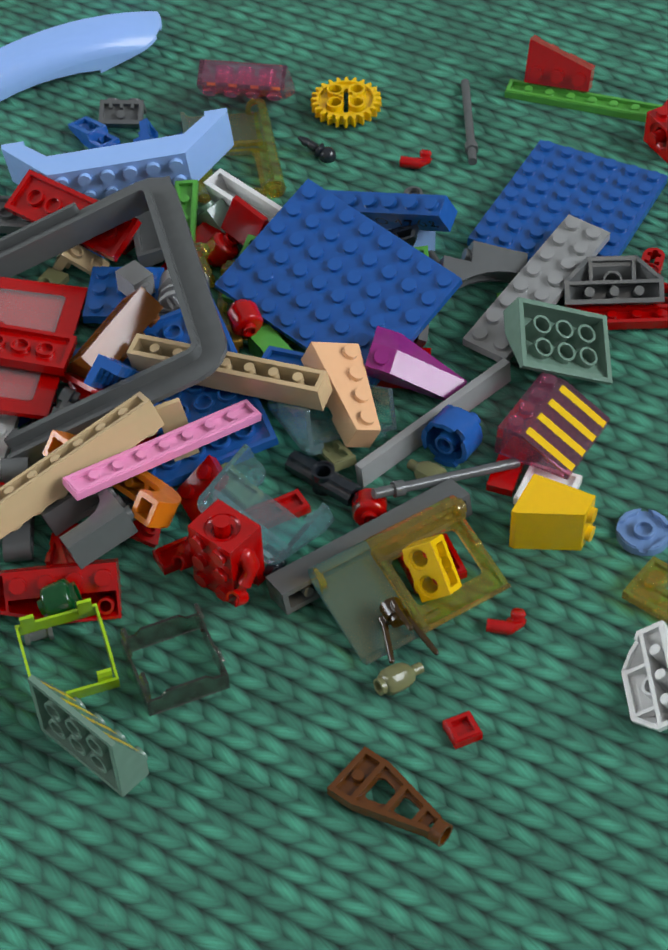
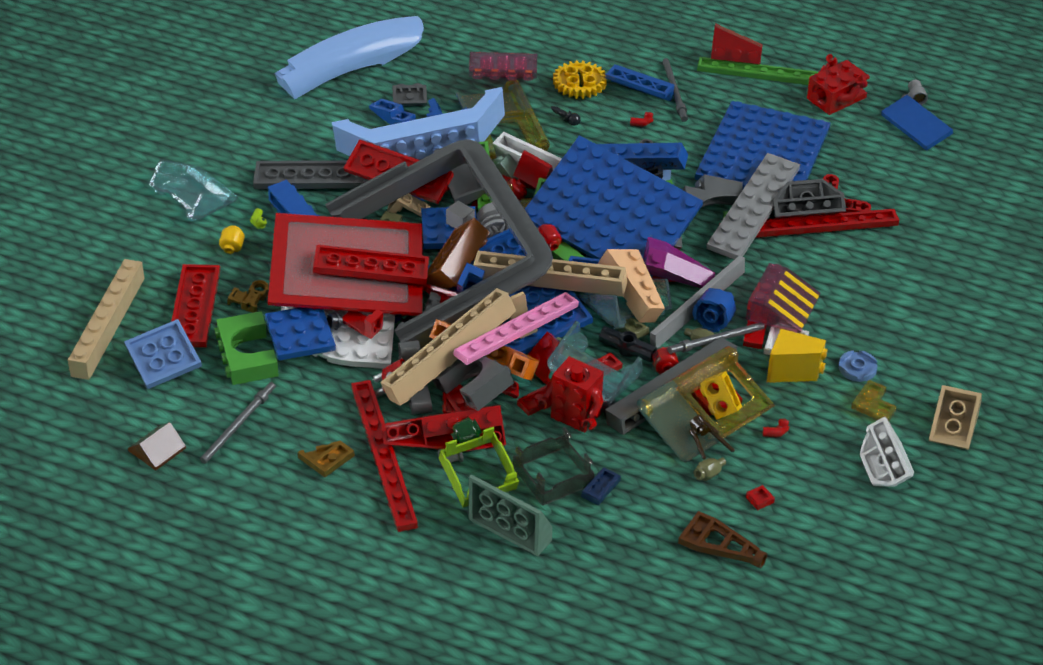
camera: 10 degrees left, 5 degrees down
(235, 694) = (600, 486): none -> dark blue plate
(424, 109) = (641, 82): none -> blue fence
(559, 340) = (777, 240): sand green slope -> none

